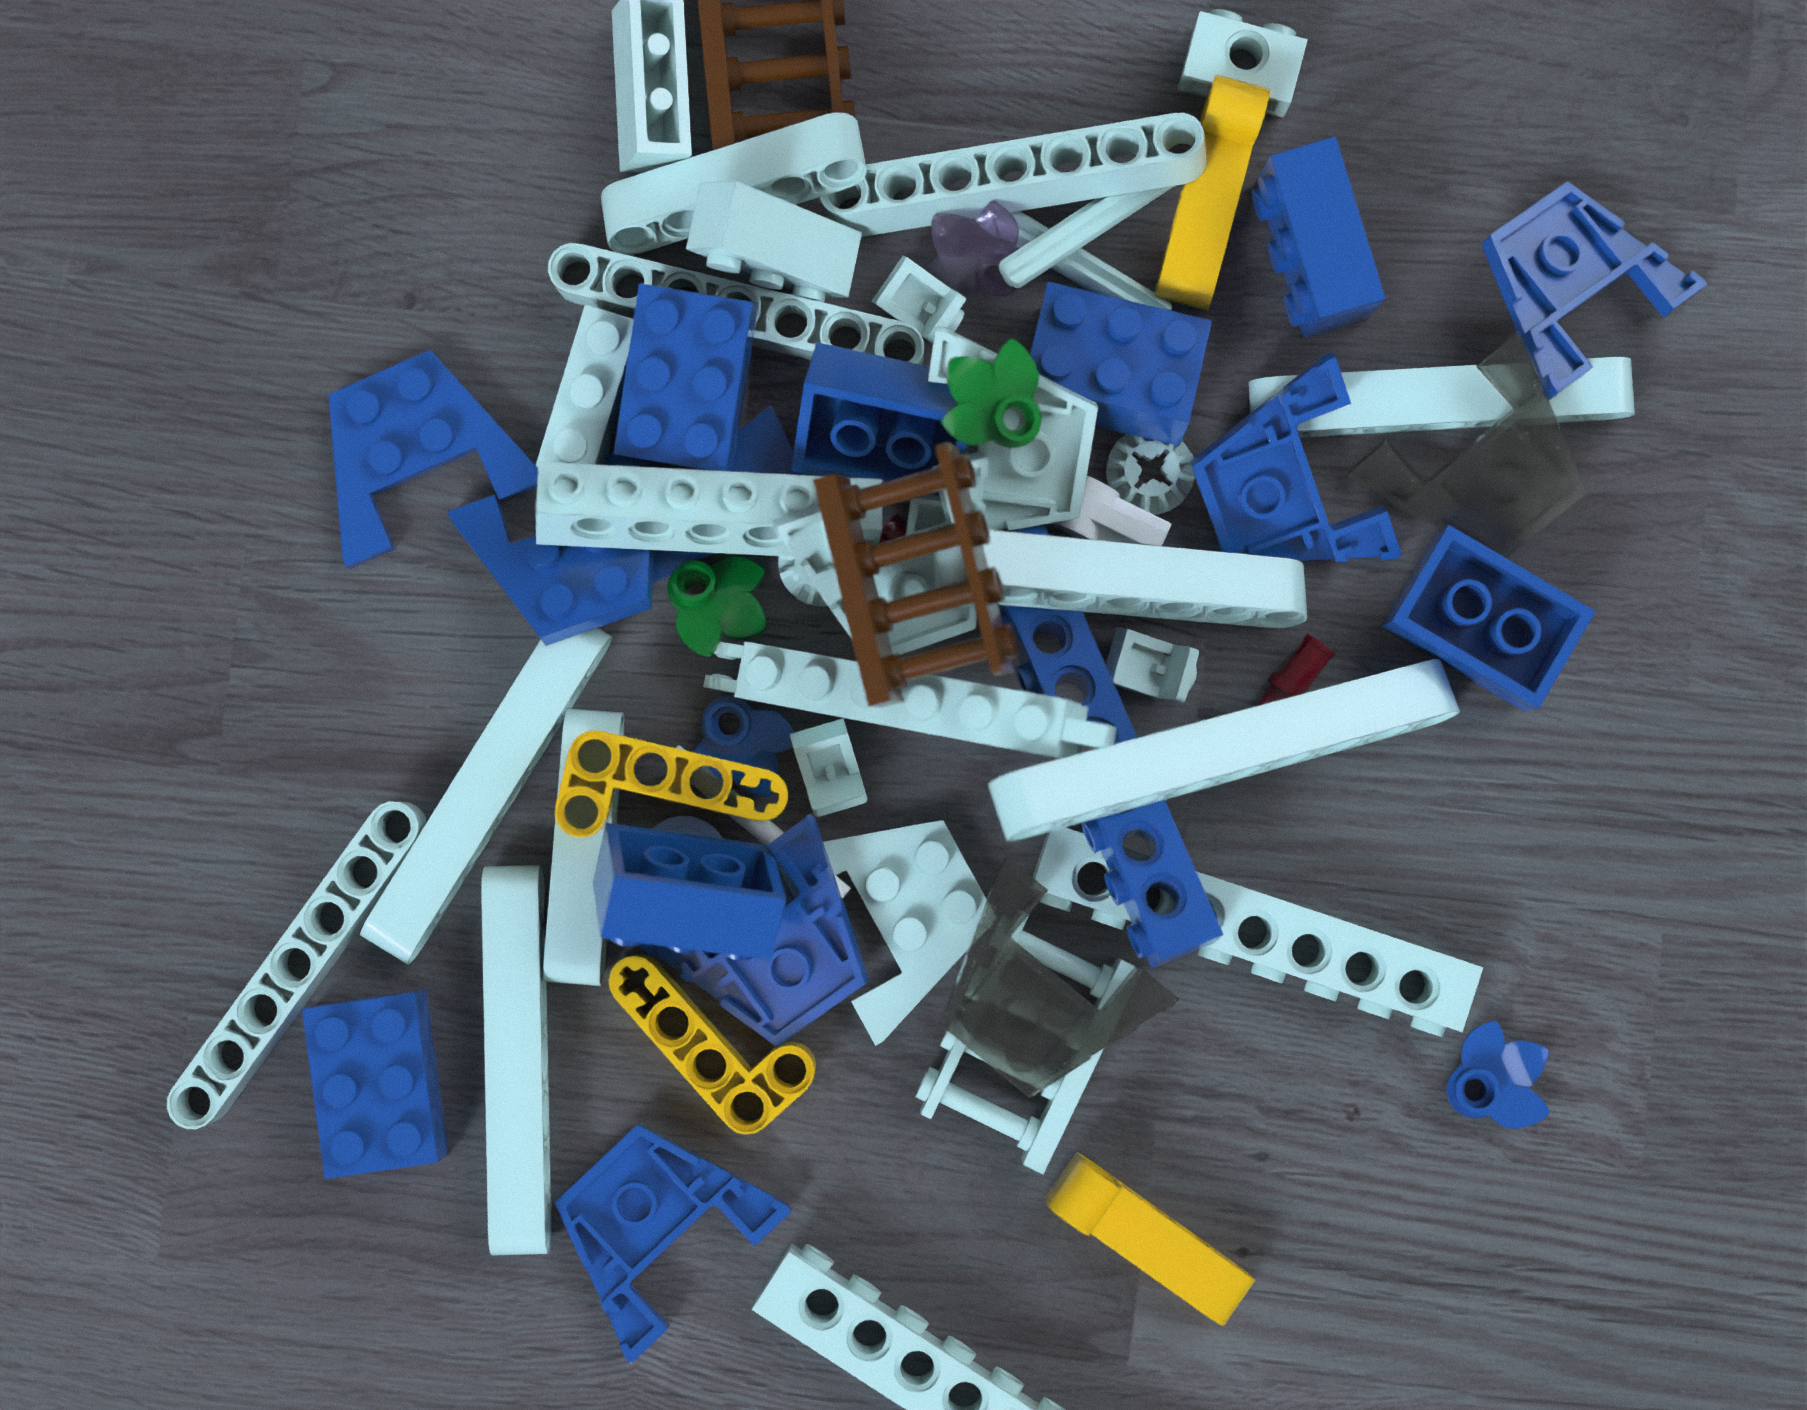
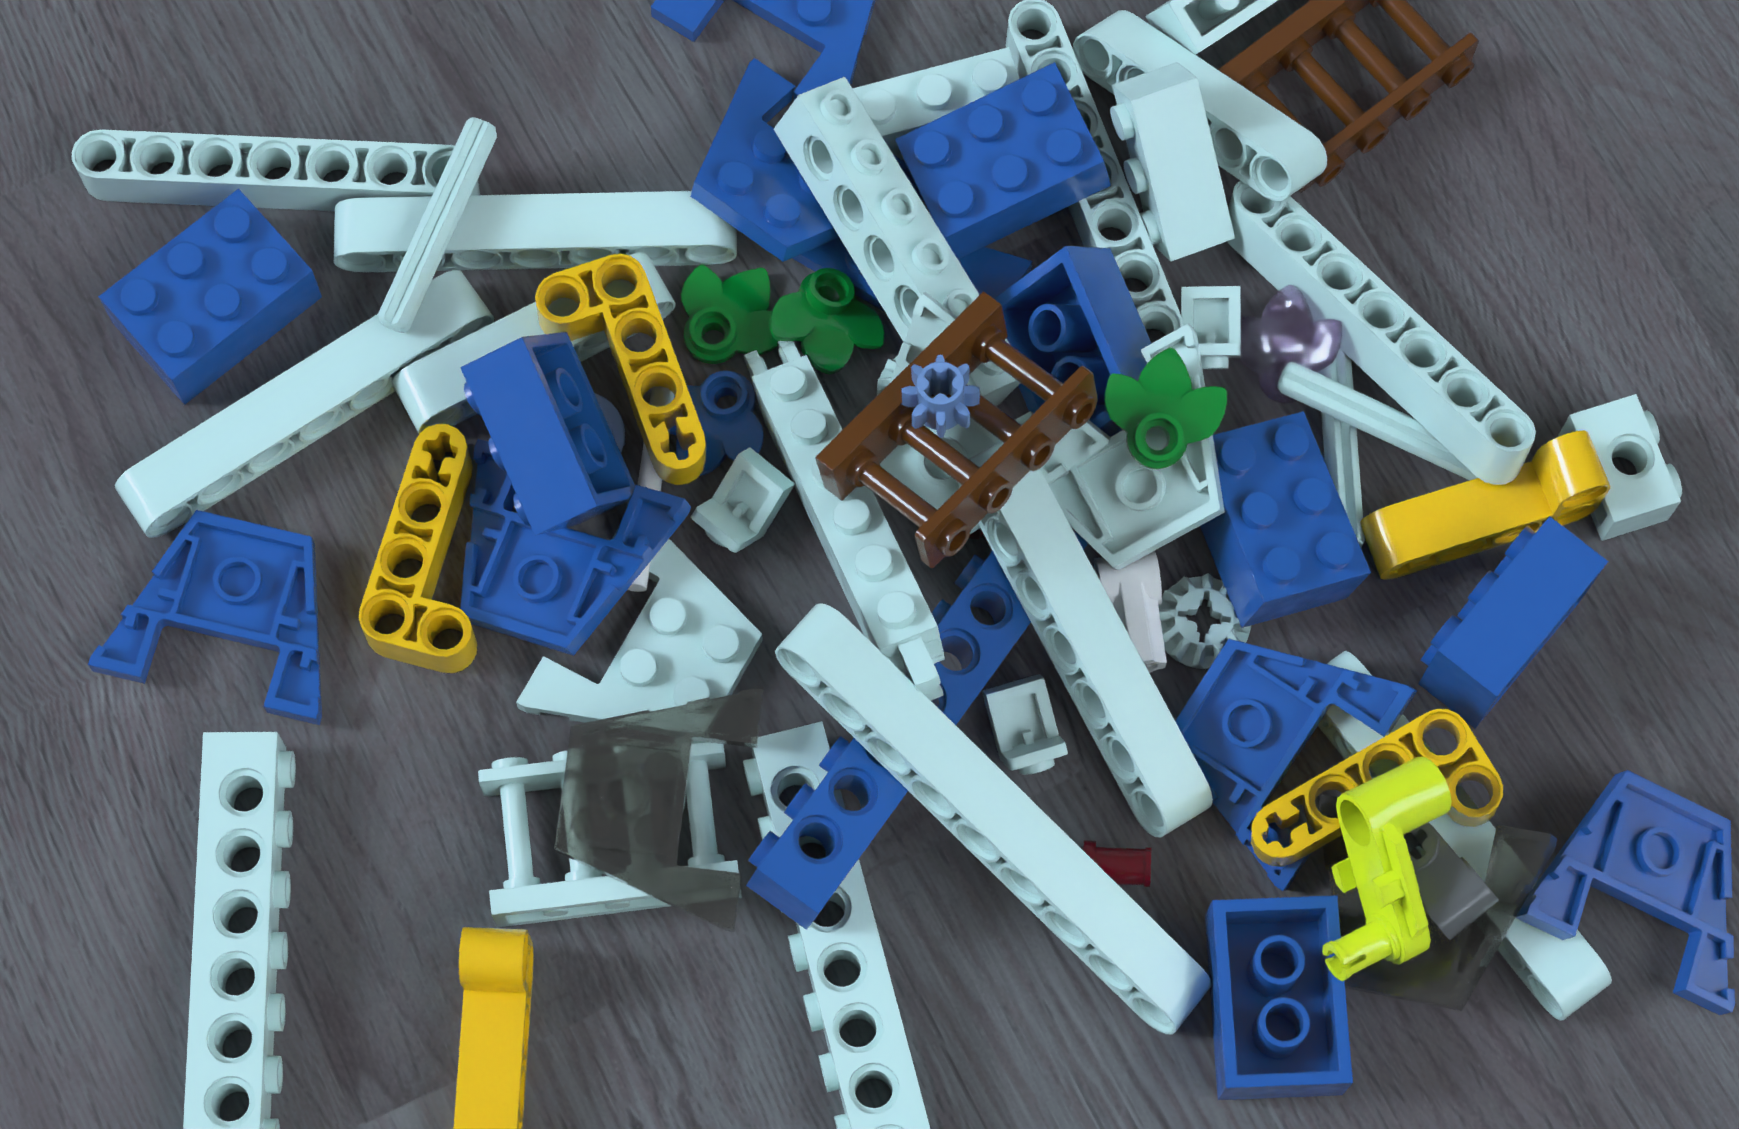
camera: 55 degrees right, 15 degrees down
(440, 866) = (437, 225): none -> light aqua axle
(652, 666) = (732, 307): none -> green plate
(874, 568) = (940, 380): none -> medium blue gear
(1392, 449) = (1402, 745): none -> yellow beam
(1434, 468) = (1380, 866): none -> neon yellow piece
(1500, 440) = (1447, 884): none -> dark grey piece

